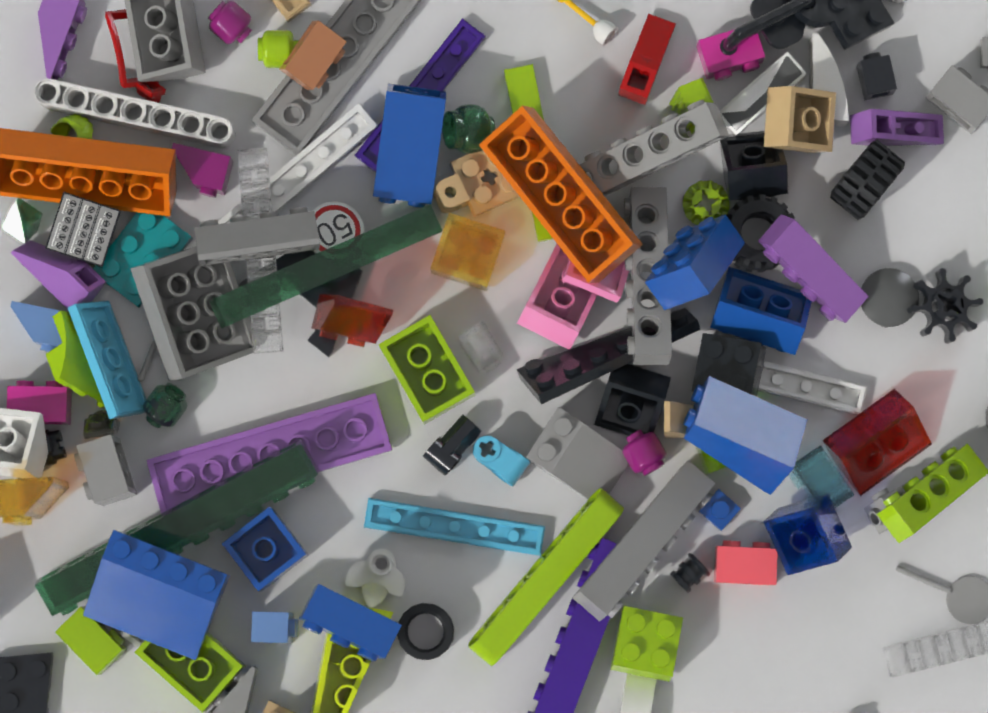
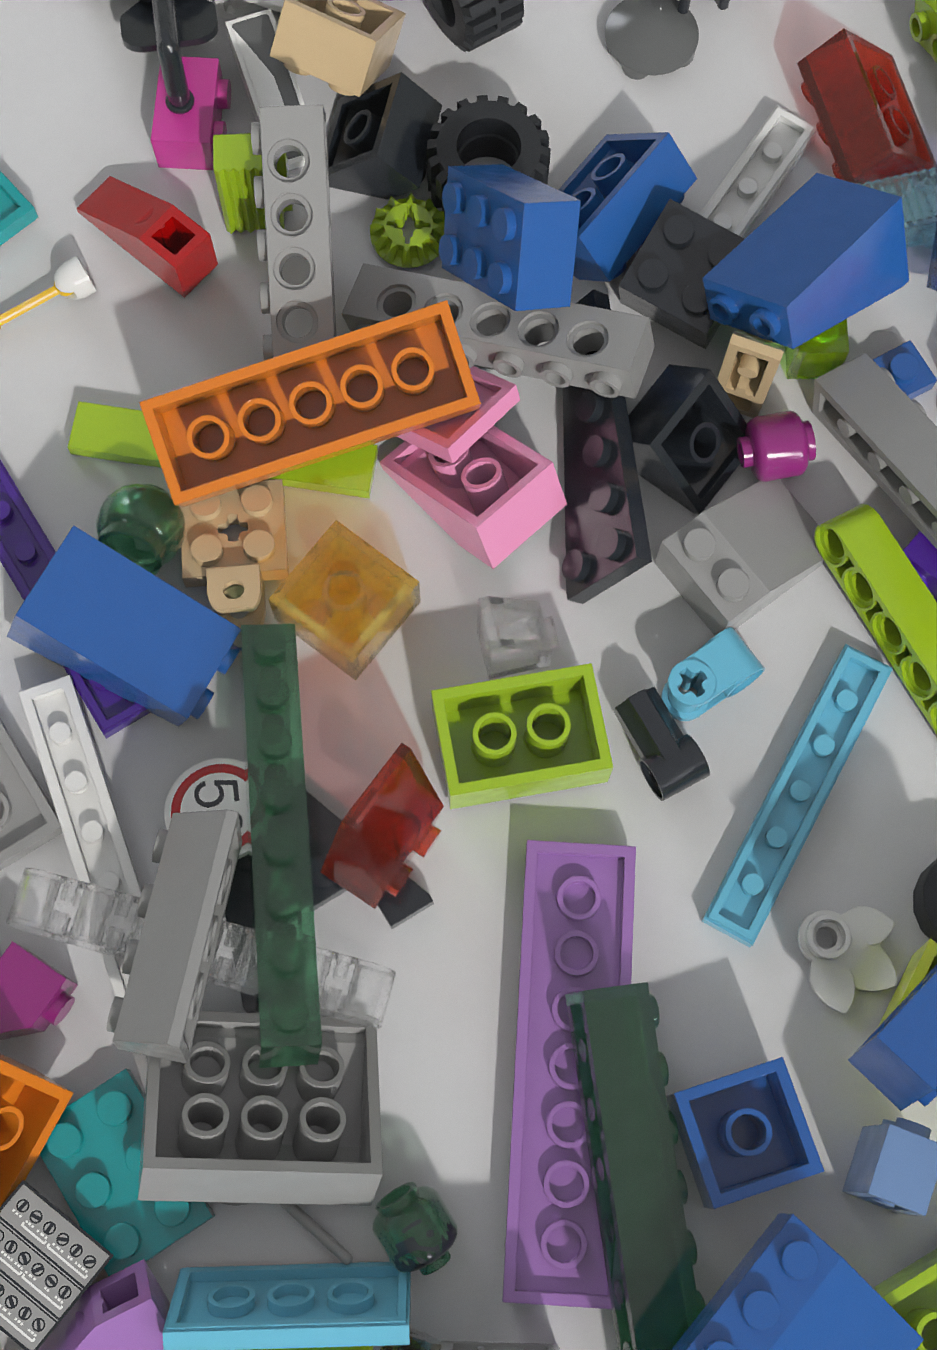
camera: 75 degrees left, 10 degrees down
(812, 268) = (575, 94): medium lavender brick -> none

